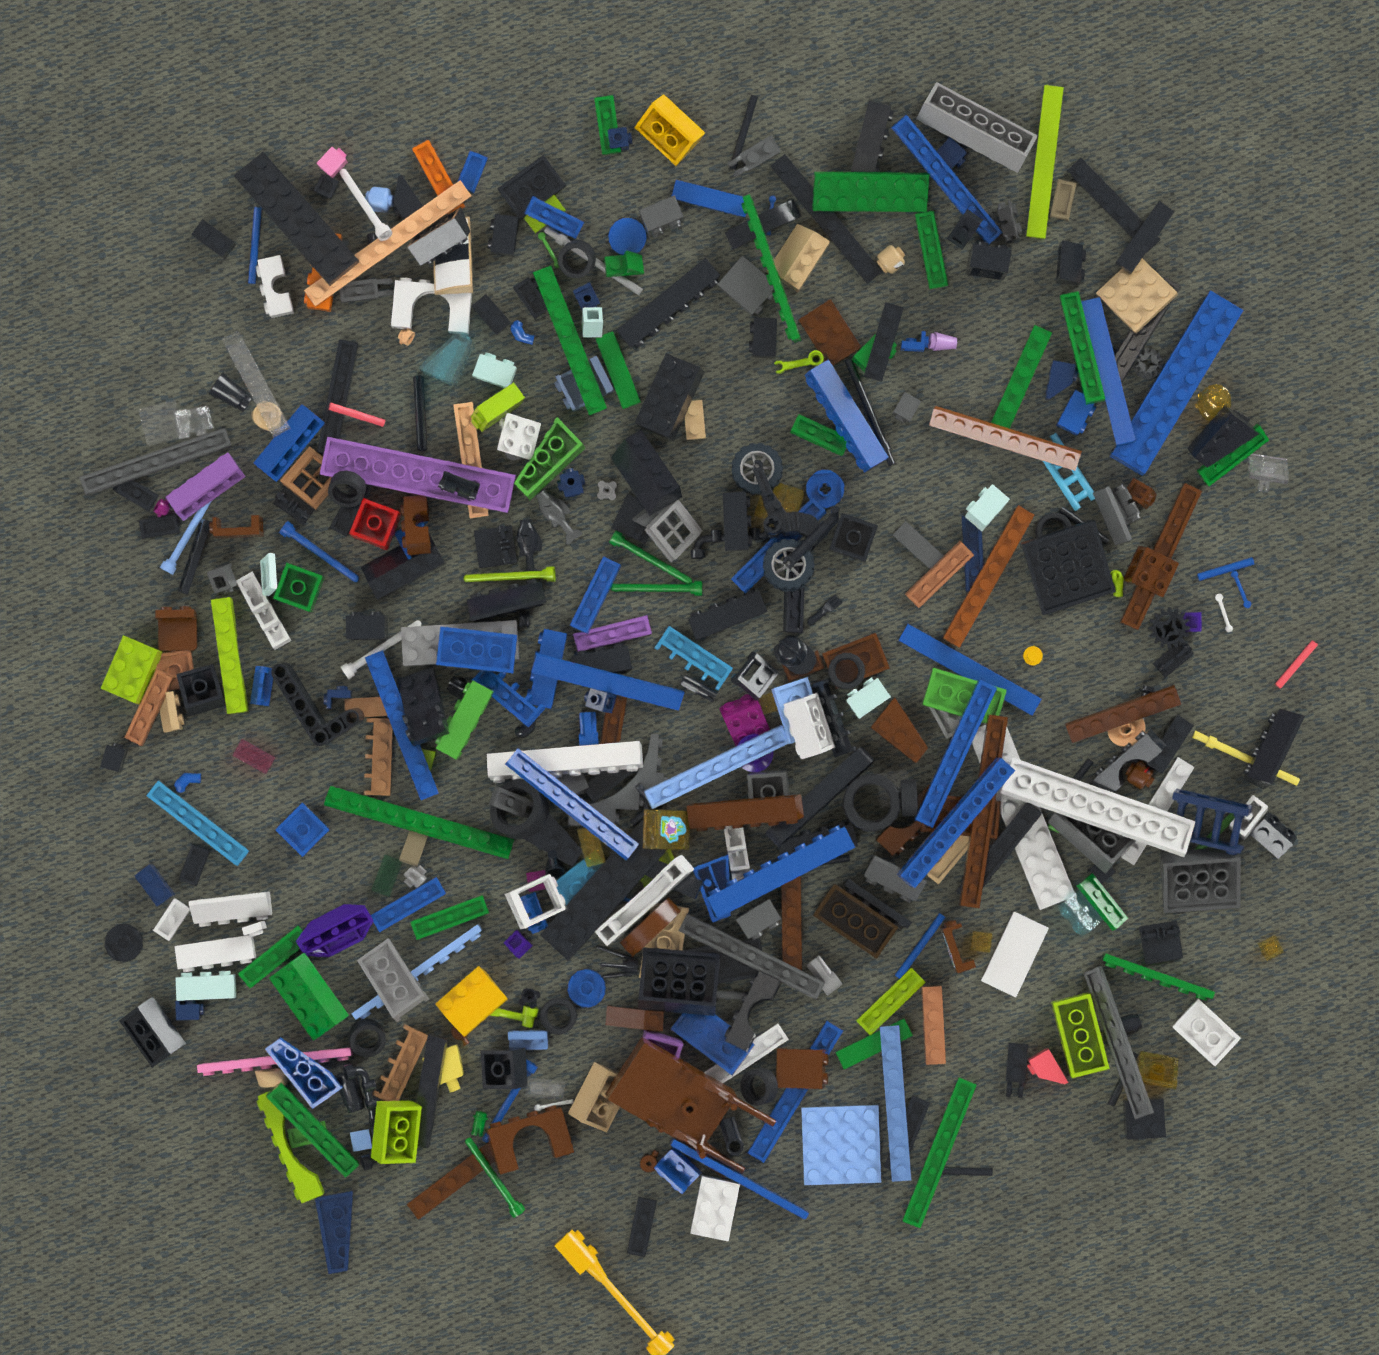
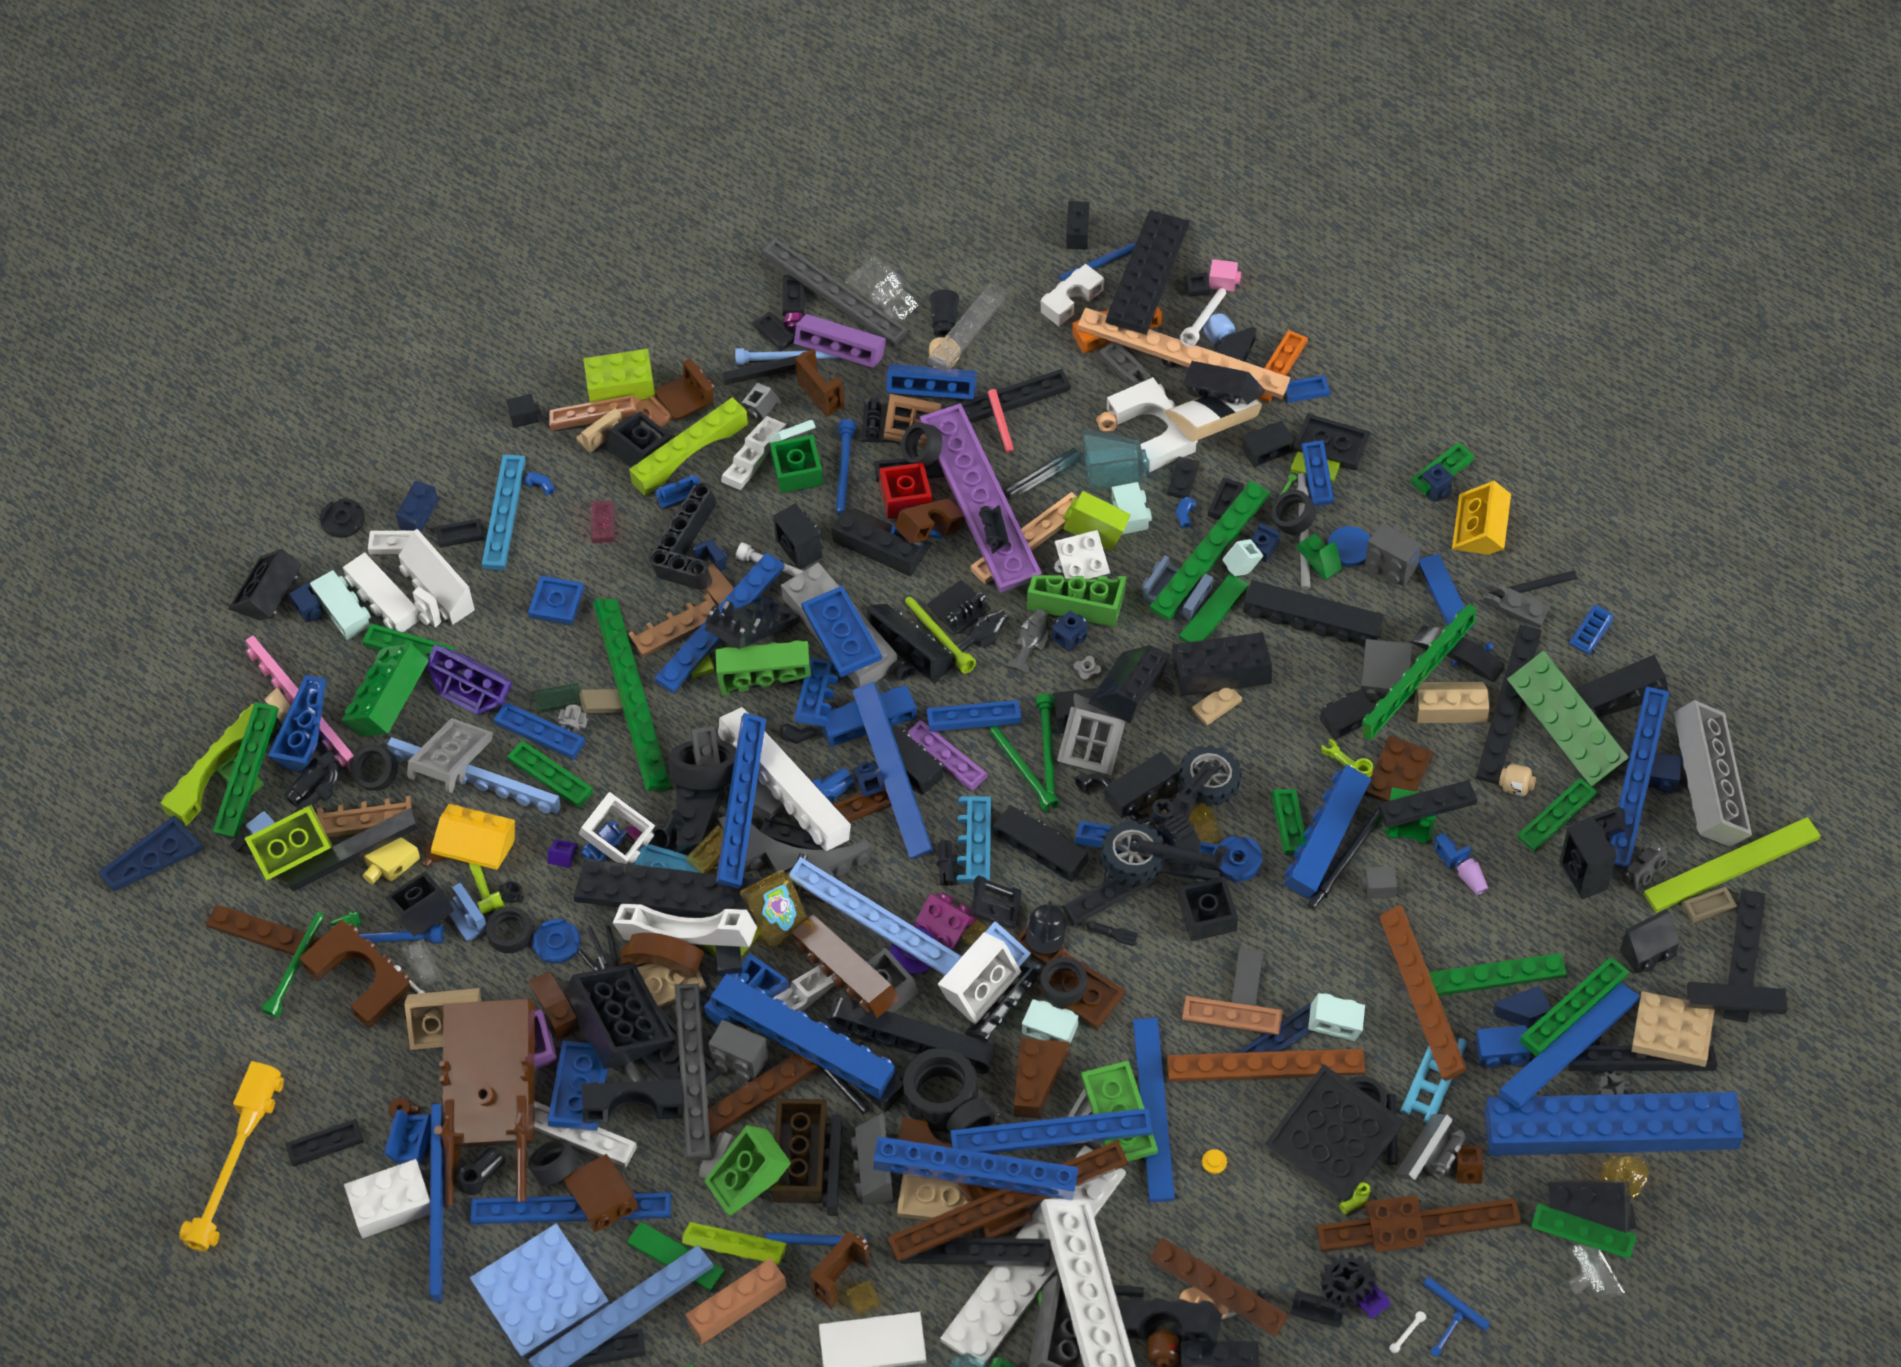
camera: 55 degrees right, 30 degrees down
(807, 102) = (1597, 617): none -> blue slope
(854, 967) = (747, 1169): none -> bright green slope

